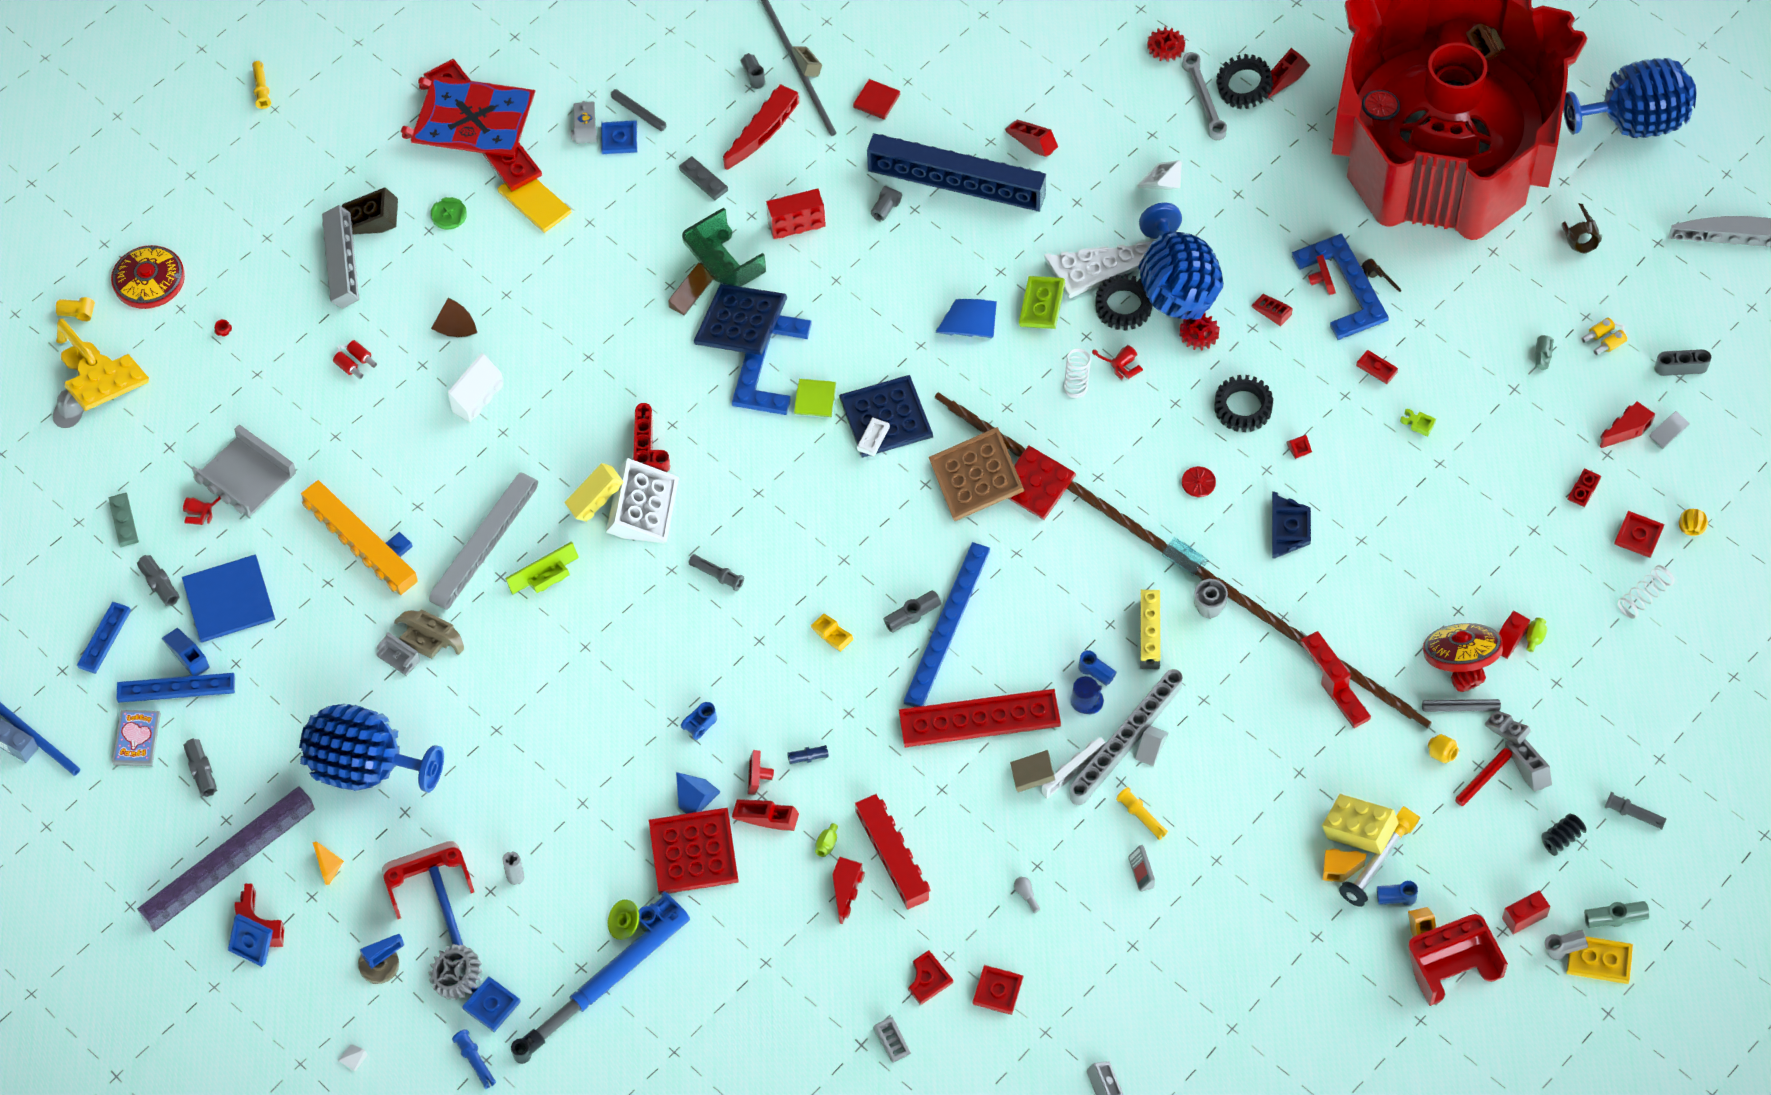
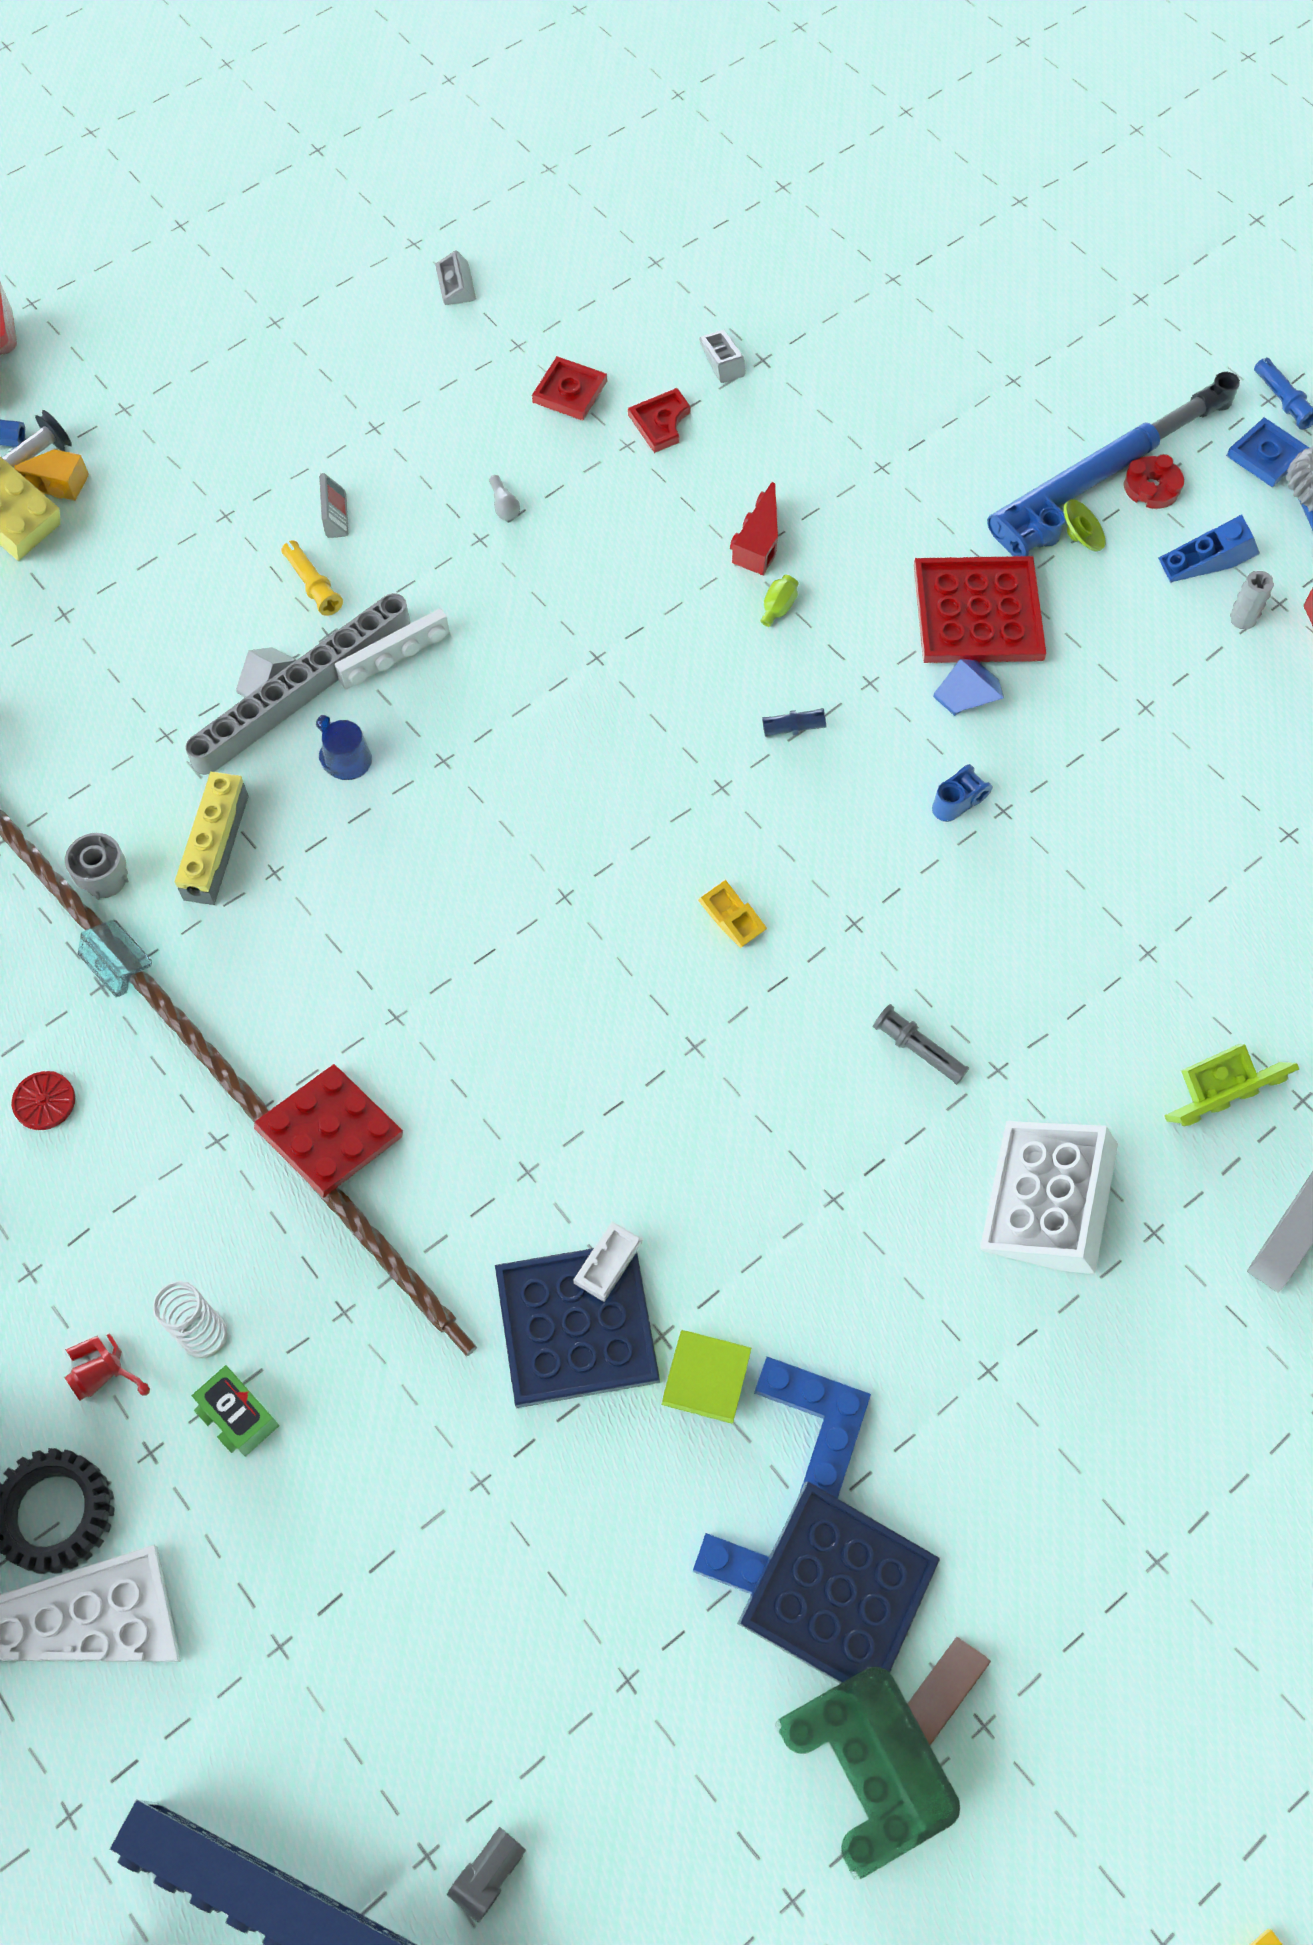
camera: 175 degrees left, 5 degrees up
(535, 914) = (1211, 552): none -> blue slope
(570, 961) = (1157, 468): none -> red plate
(594, 492) = (1143, 1204): light yellow brick -> none
(645, 438) = (1040, 1331): red beam -> none
(756, 772) = (875, 704): tile -> none
(766, 814) = (867, 644): red slope -> none
(796, 213) = (695, 1854): red brick -> none
(892, 851) = (686, 571): red brick -> none
(903, 617) = (575, 930): dark grey piece -> none
(947, 625) = (535, 907): blue plate -> none
(970, 318) = (370, 1515): blue slope -> none
(976, 474) = (432, 1155): medium nougat plate -> none
(979, 718) = (517, 742): red plate -> none
(1032, 771) = (455, 643): dark tan tile -> none
(1042, 302) = (214, 1533): lime plate -> none
(1047, 352) = (234, 1411): none -> brick
(1097, 669) = (317, 791): blue piece -> none

